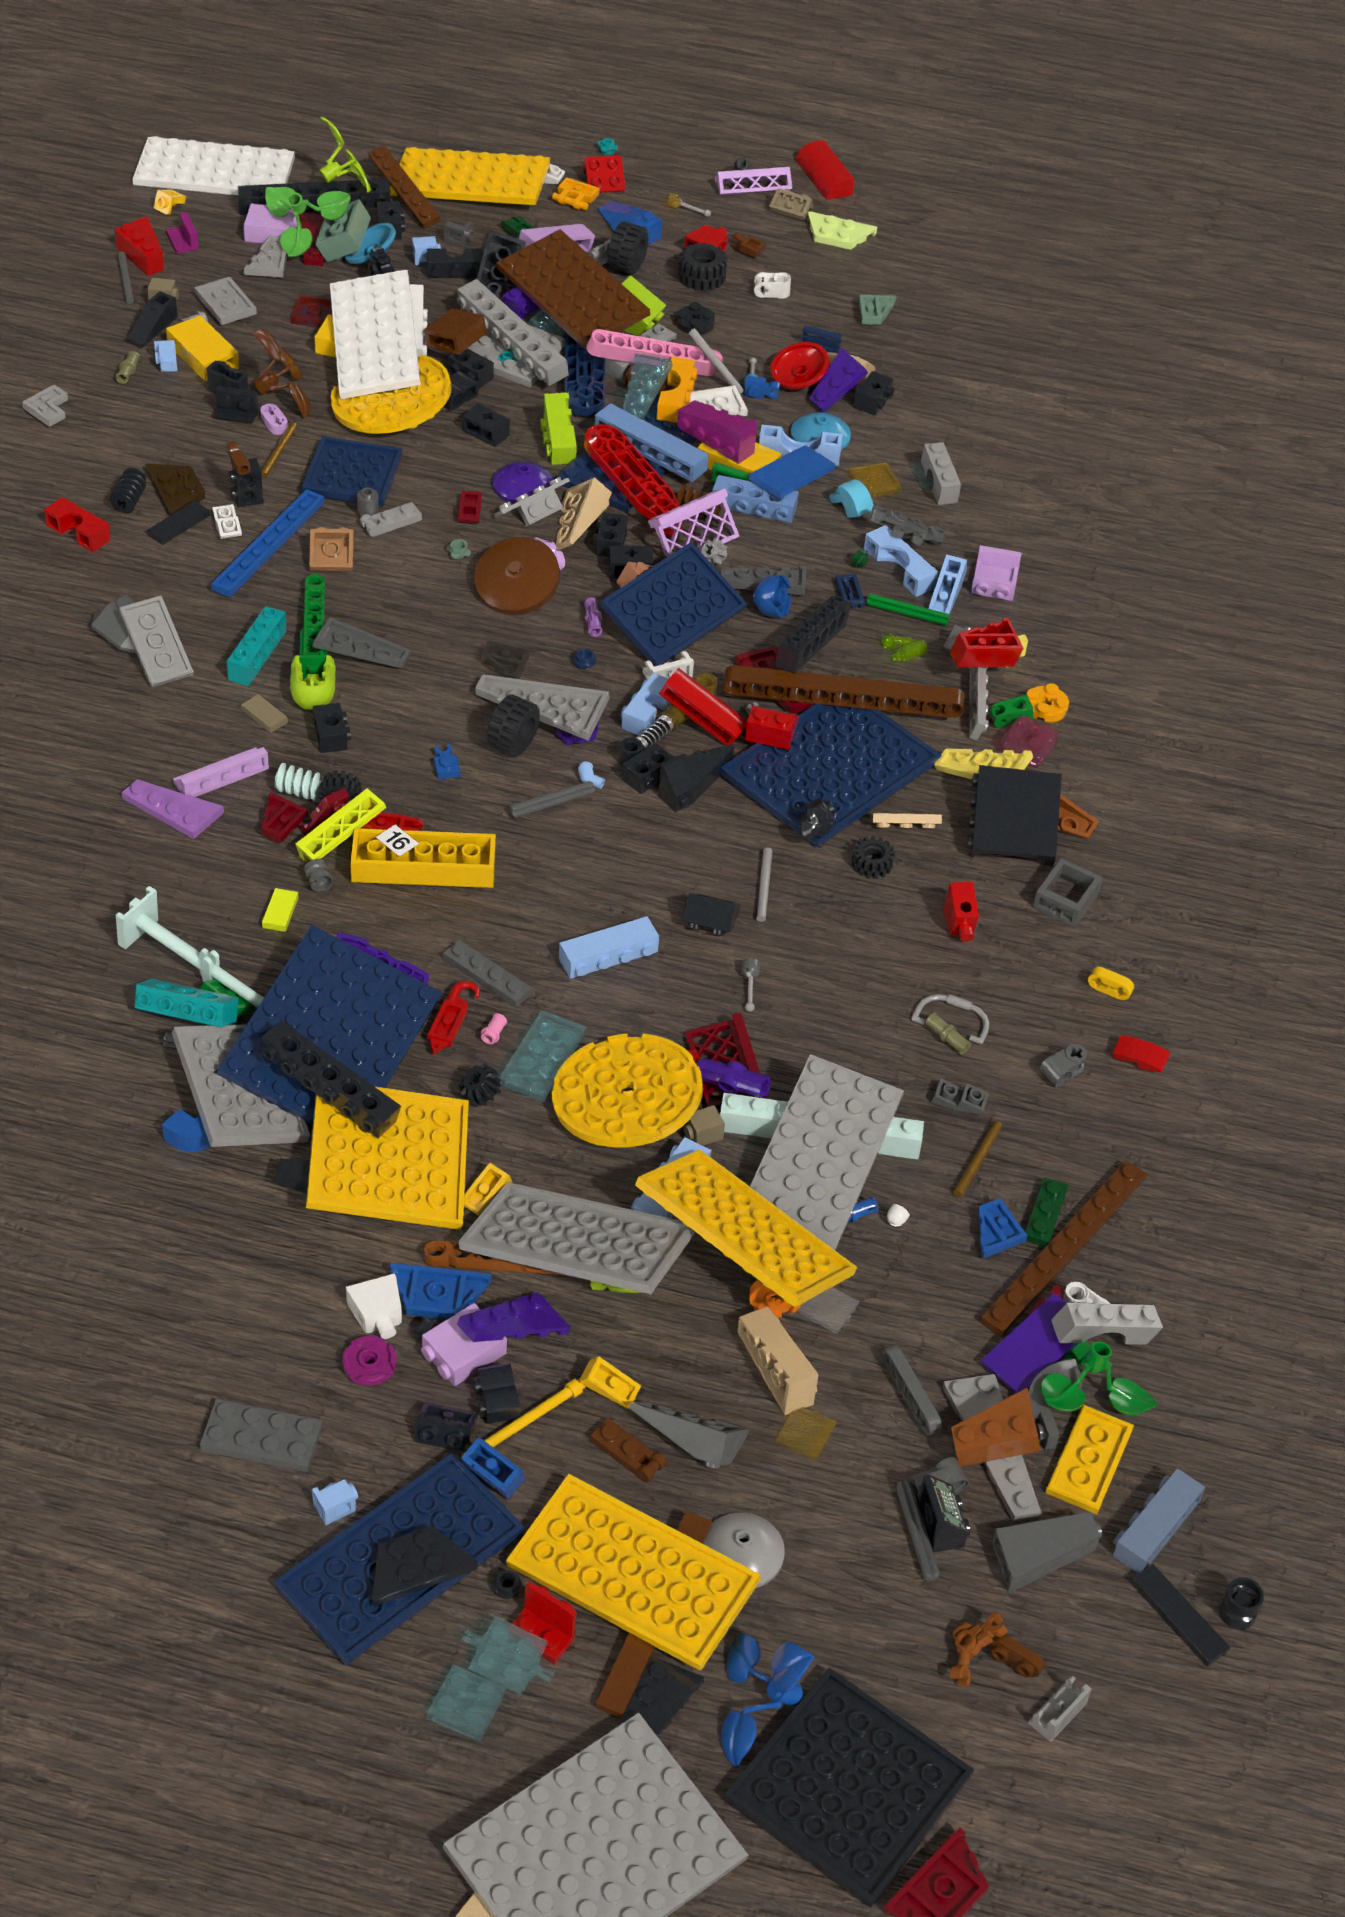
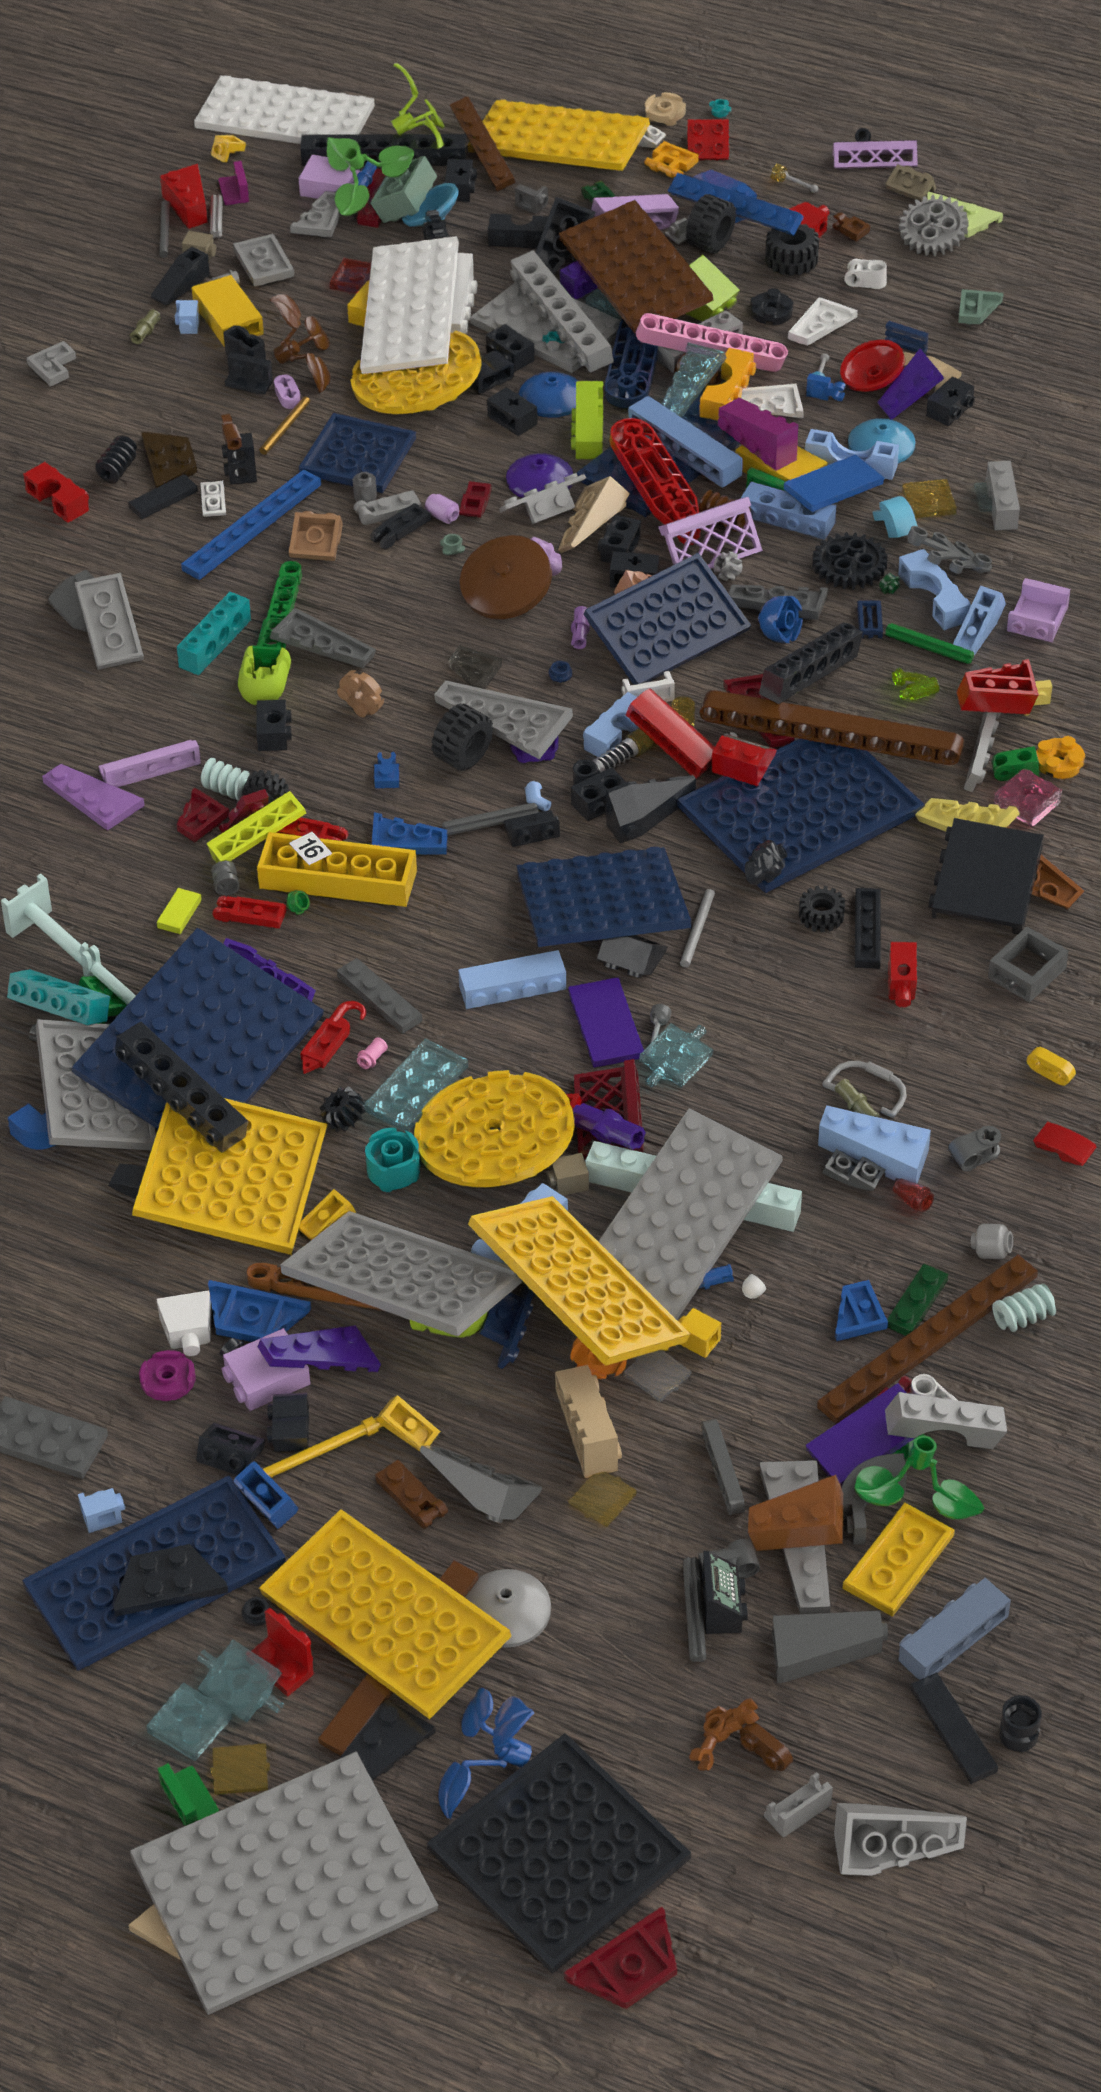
camera: 15 degrees right, 0 degrees up
(171, 261) = (216, 216): none -> light grey axle
(264, 713) = (207, 705): dark tan tile -> none
(305, 218) = (365, 176): none -> blue axle
(348, 904) = (249, 911): none -> red hinge
(391, 891) = (297, 901): none -> green plate
(398, 691) = (350, 690): none -> medium nougat plate
(407, 534) = (400, 525): none -> black hinge
(420, 247) = (485, 208): light blue brick -> none
(442, 516) = (442, 508): none -> lavender brick
(455, 331) = (498, 307): reddish brown brick -> none
(482, 1778) = (187, 1794): none -> green panel
(483, 822) = (417, 837): none -> blue wing
(518, 404) = (551, 392): none -> blue dish
(525, 1743) = (240, 1769): none -> clear yellow piece
(538, 1128) = (392, 1159): none -> teal brick
(559, 148) = (665, 109): none -> tan plate
(592, 804) = (532, 828): none -> black bracket
(657, 231) = (746, 206): none -> blue plate
(676, 863) = (602, 896): none -> dark blue plate
(684, 1276) = (506, 1323): none -> dark blue bracket
(702, 979) = (605, 1022): none -> dark purple tile
(715, 360) = (773, 348): light grey bar -> none
(742, 328) = (820, 320): none -> white wing
(774, 1004) = (676, 1055): none -> clear light blue plate
(820, 540) = (849, 560): none -> black gear
(821, 240) = (933, 225): none -> light grey gear
(825, 170) = (959, 146): red brick -> none
(866, 1262) = (703, 1331): none -> yellow brick
(905, 820) = (868, 872): tan plate -> none
(916, 871) = (867, 928): none -> black tile
(977, 1159) = (857, 1237): pearl gold bar -> none
(986, 1068) = (889, 1144): none -> light blue wedge
(1020, 1114) = (915, 1195): none -> clear red cone
(1100, 1150) = (992, 1241): none -> light grey head
(1145, 1209) = (1024, 1305): none -> light aqua piece
(1149, 1728) = (885, 1837): none -> light grey wedge

